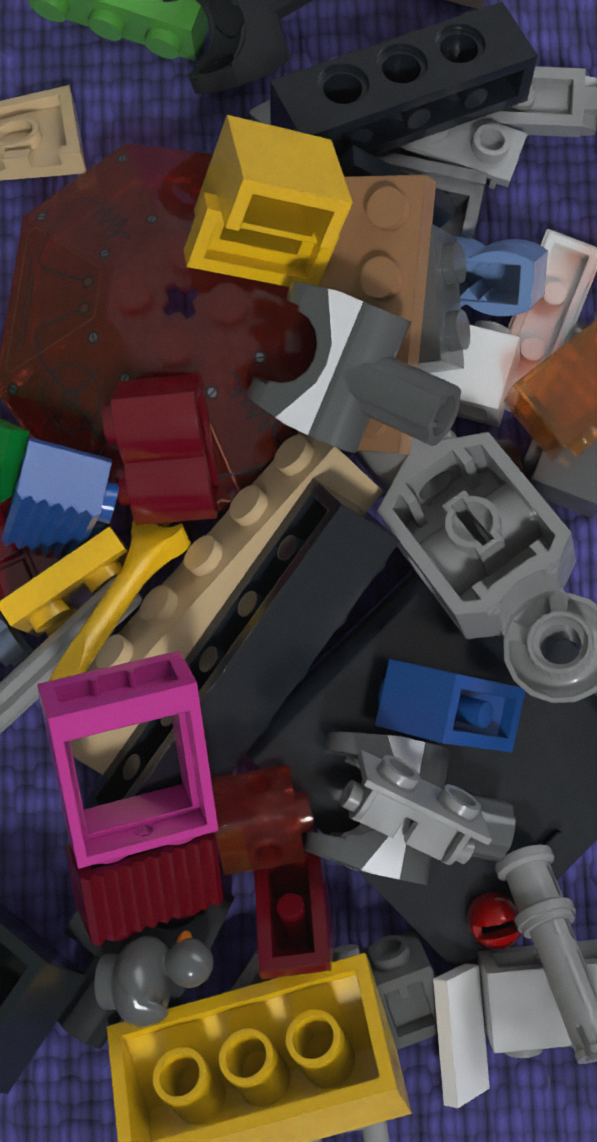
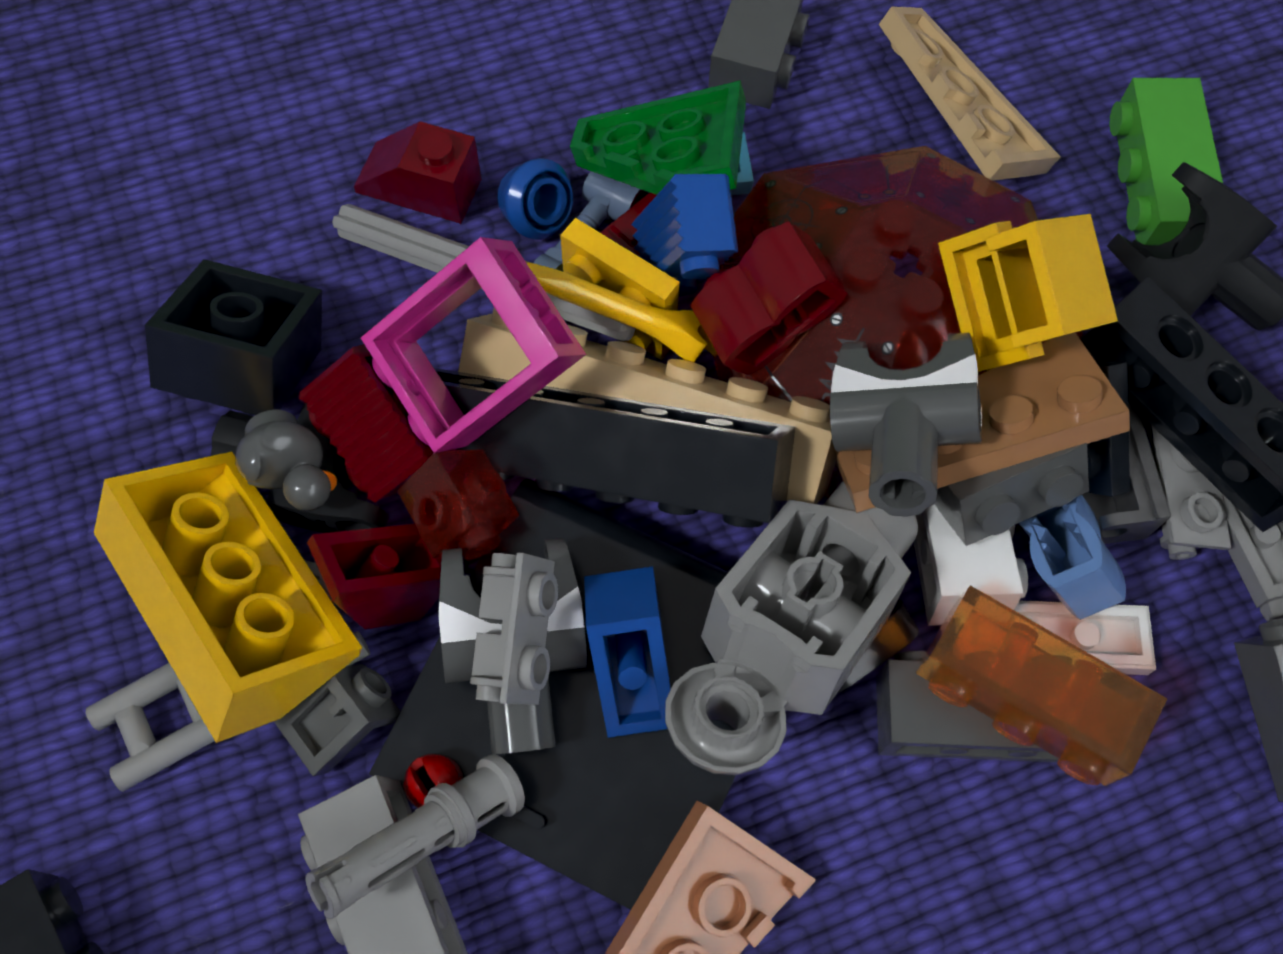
camera: 65 degrees right, 15 degrees down
(461, 1035) = (283, 793): white piece -> none

